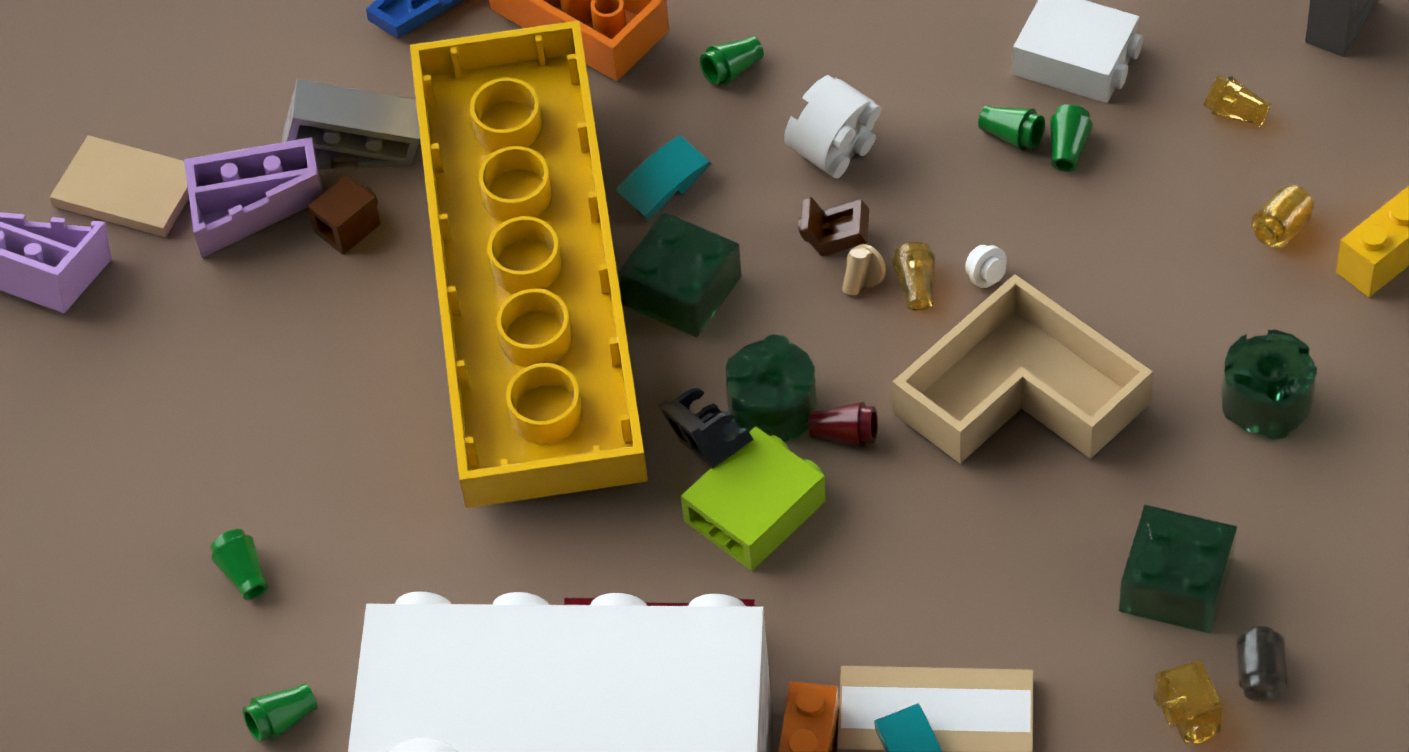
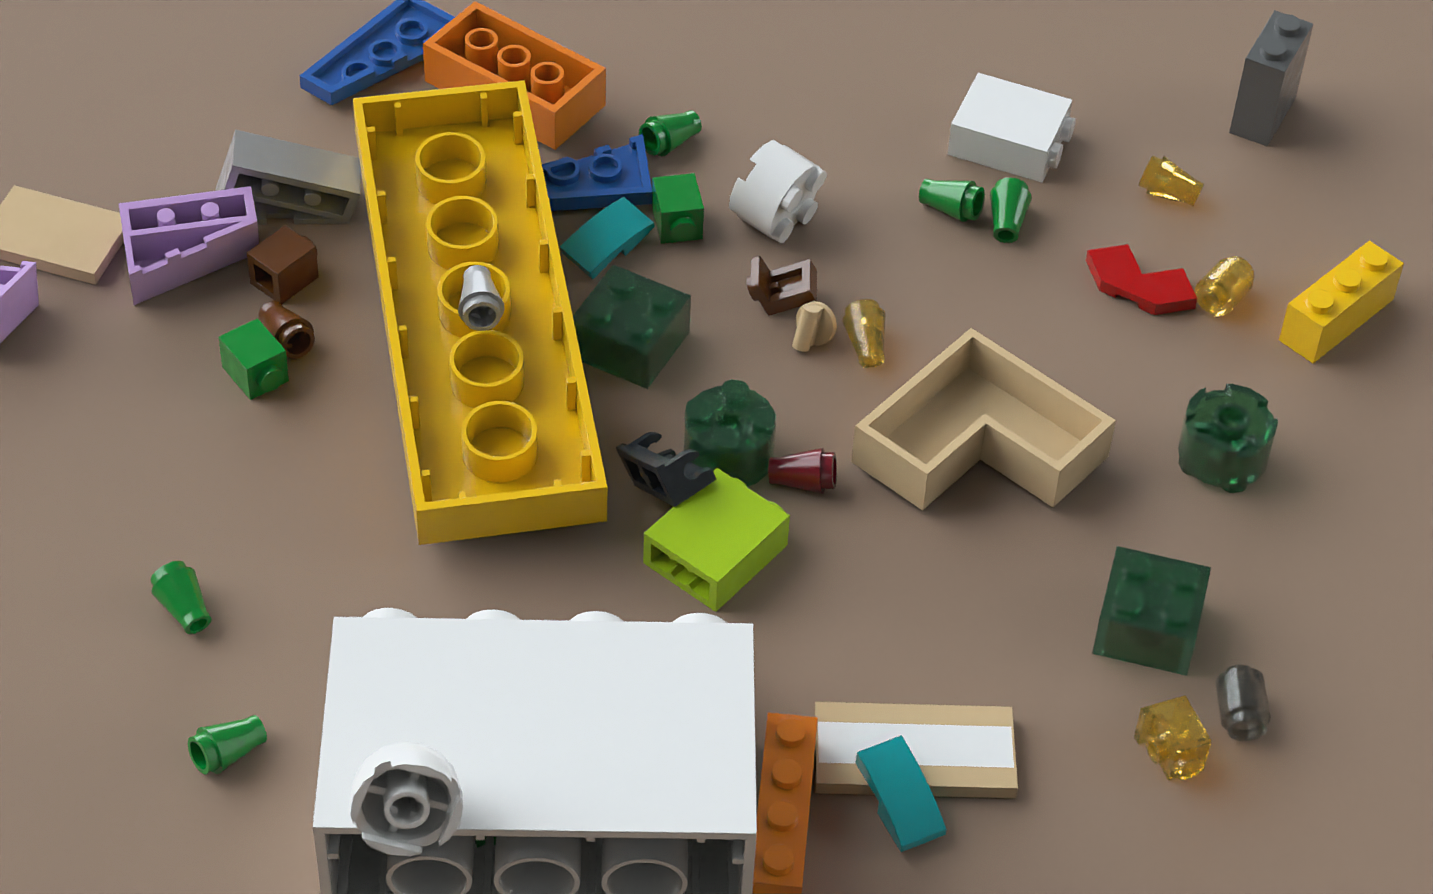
camera: 10 degrees left, 5 degrees down
(314, 315) = (253, 359): none -> green brick
(347, 285) = (288, 328): none -> reddish brown cone
(525, 260) = (480, 301): none -> light grey cone
(655, 114) = (600, 178): none -> blue wing
(734, 144) = (677, 208): none -> green brick
(986, 265) = (936, 324): white plate -> none
(1212, 224) = (1156, 292): none -> red tile

